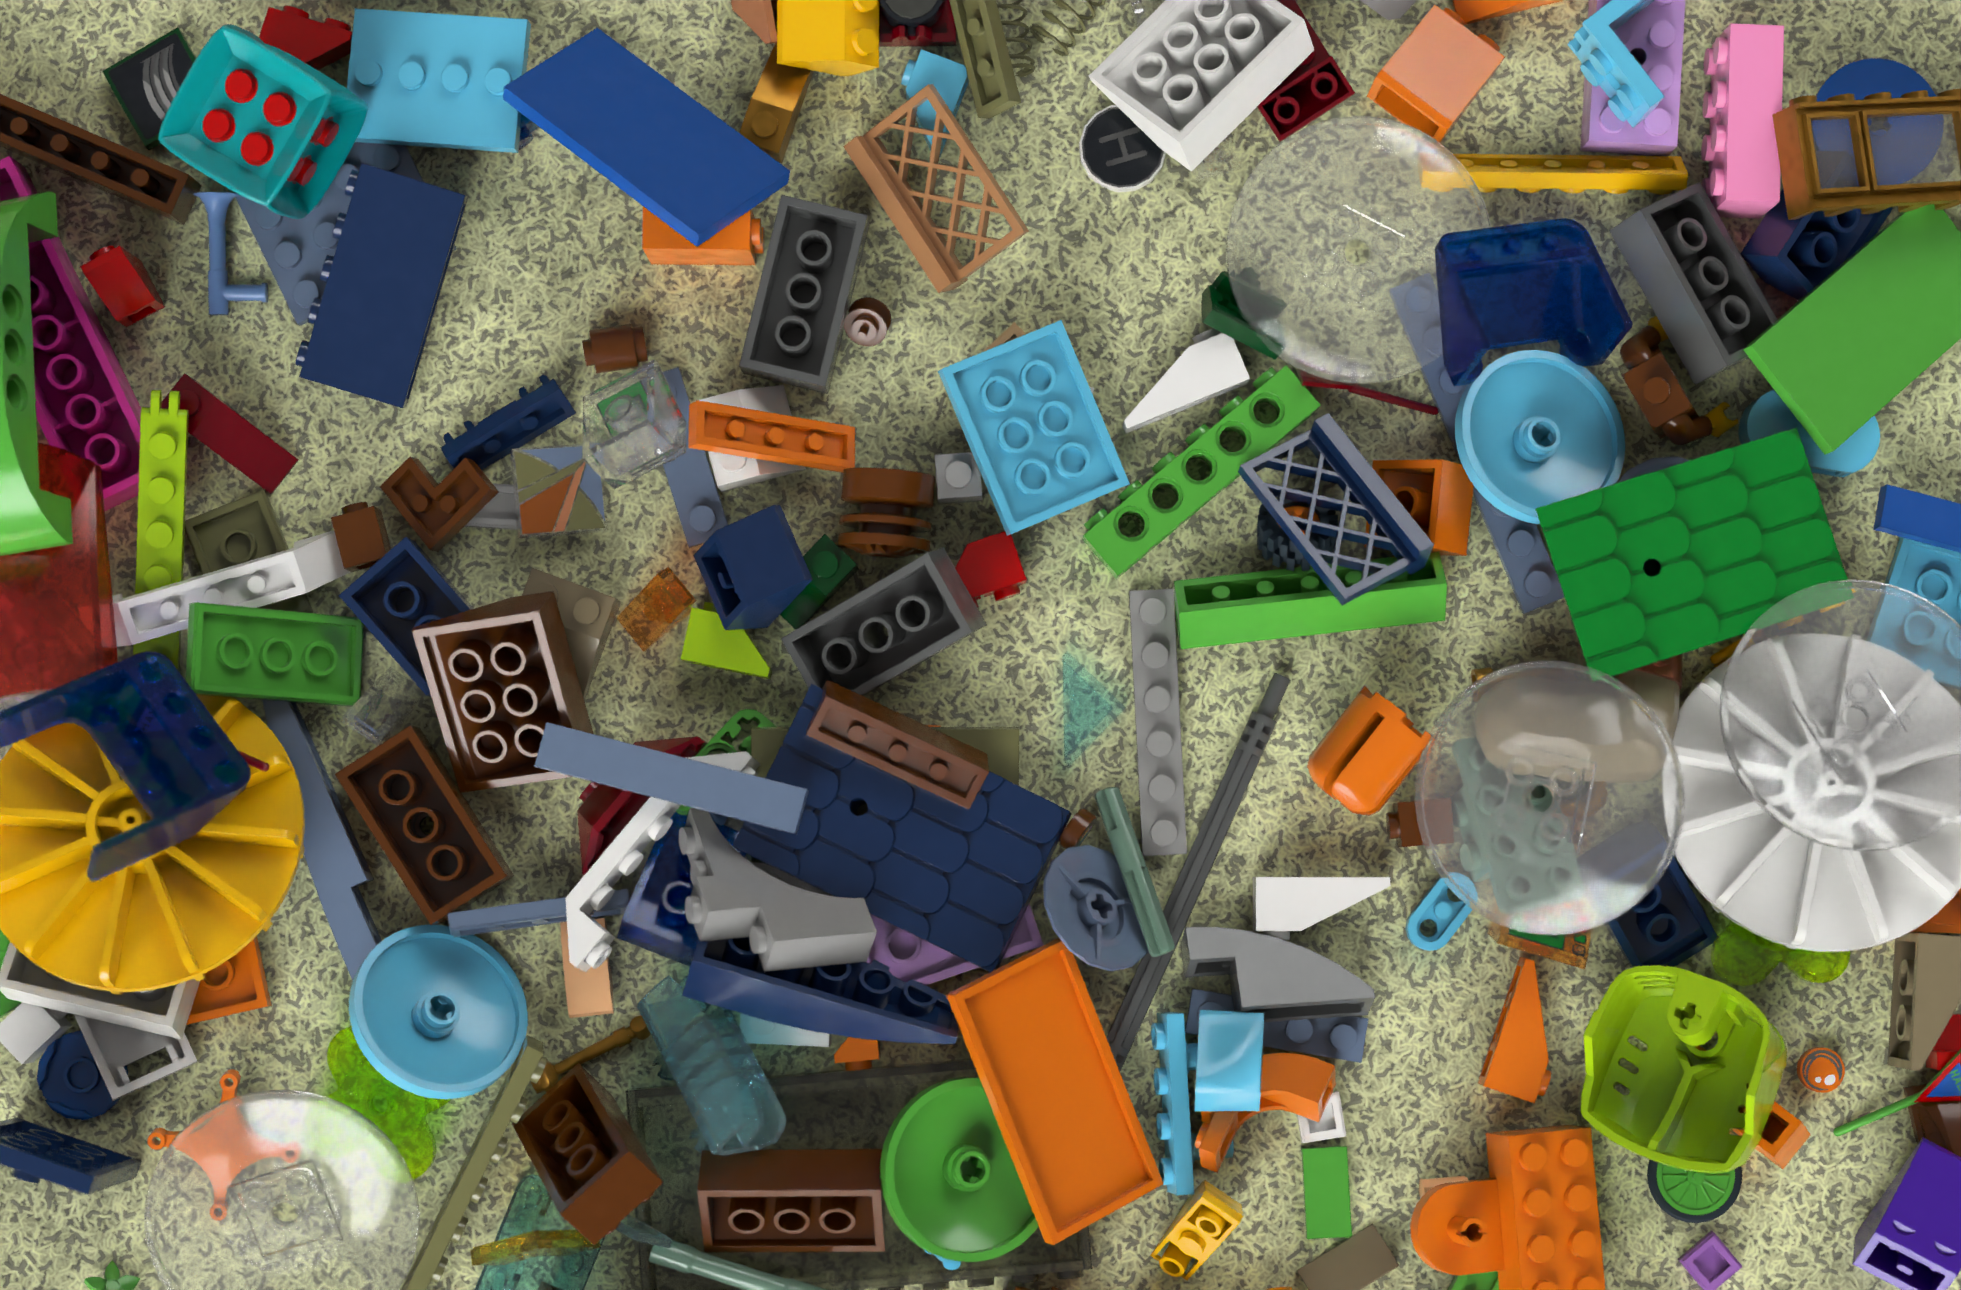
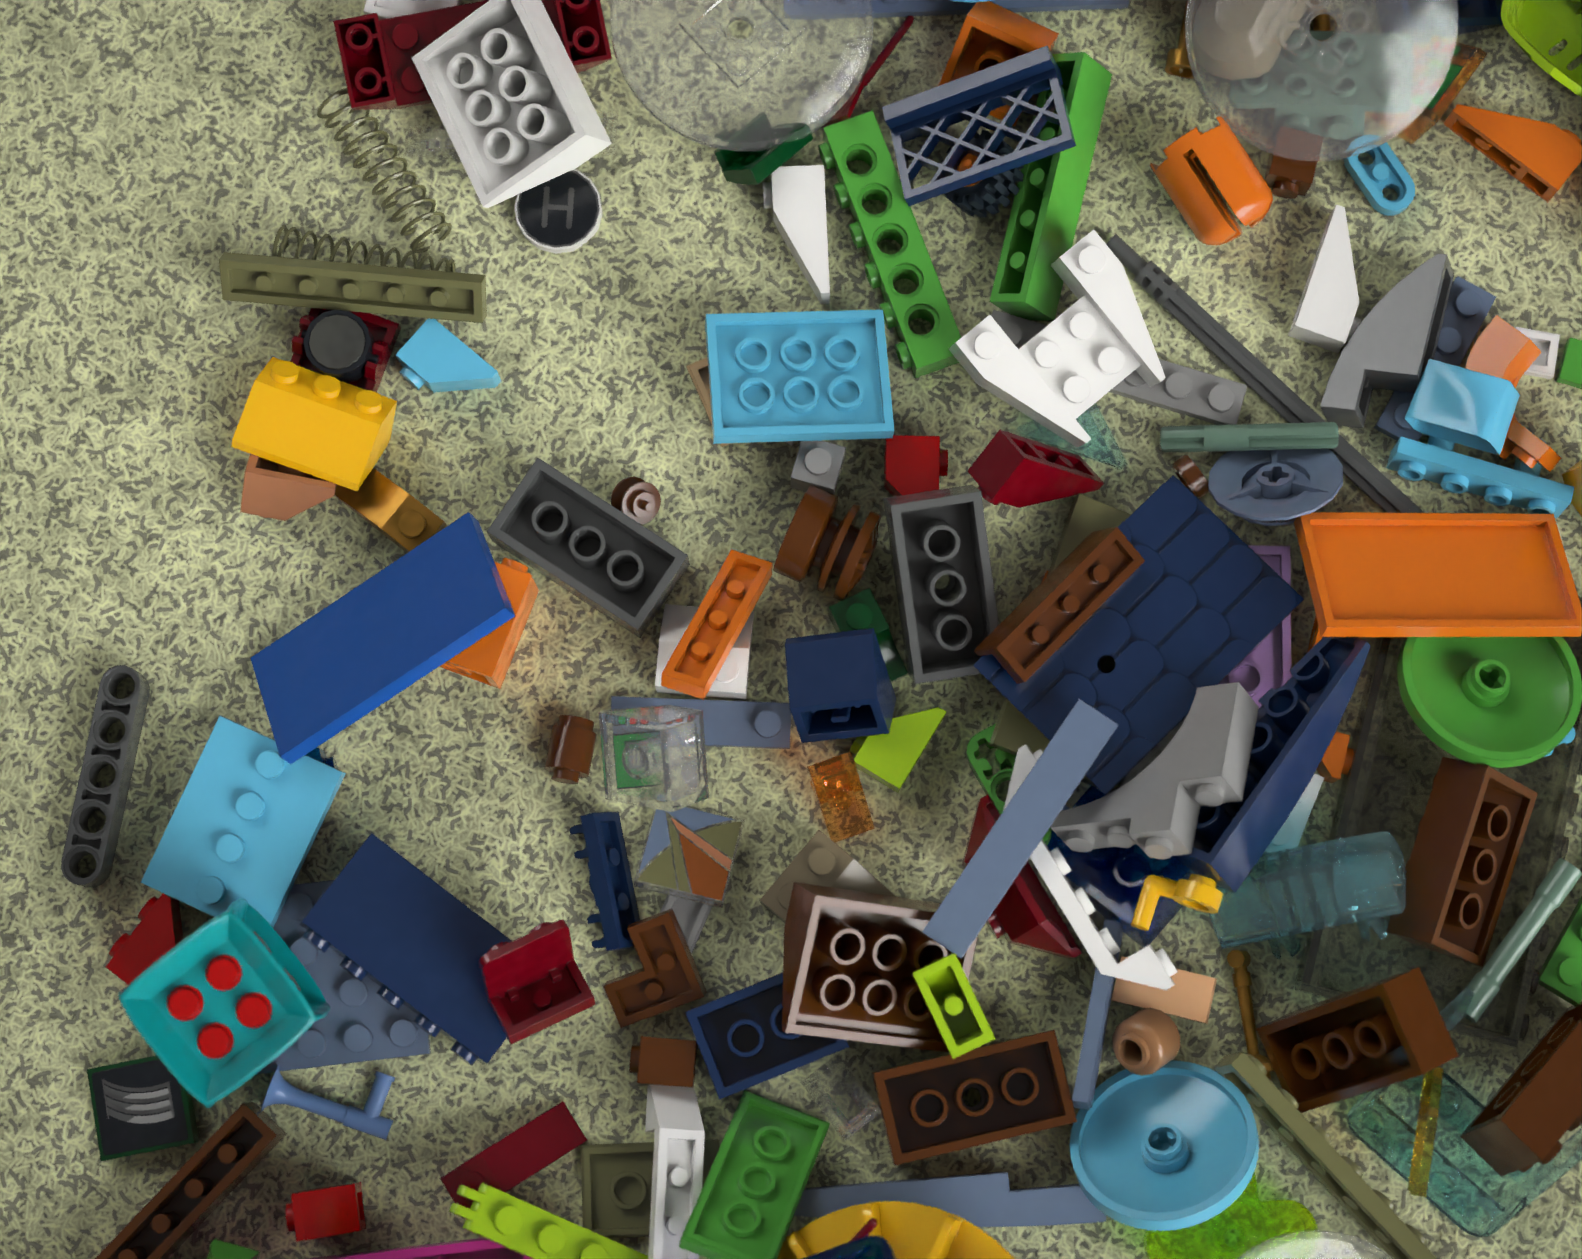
camera: 75 degrees left, 5 degrees down
(381, 391) = (534, 981): none -> dark red bracket
(490, 775) = (953, 1005): none -> lime slope
(530, 965) = (1146, 1041): none -> medium nougat head
(672, 961) = (1195, 893): none -> yellow plate
(914, 218) = (540, 425): medium nougat fence -> none
(1018, 674) = (1030, 472): none -> dark red slope
(1143, 675) = (1076, 354): none -> white wedge

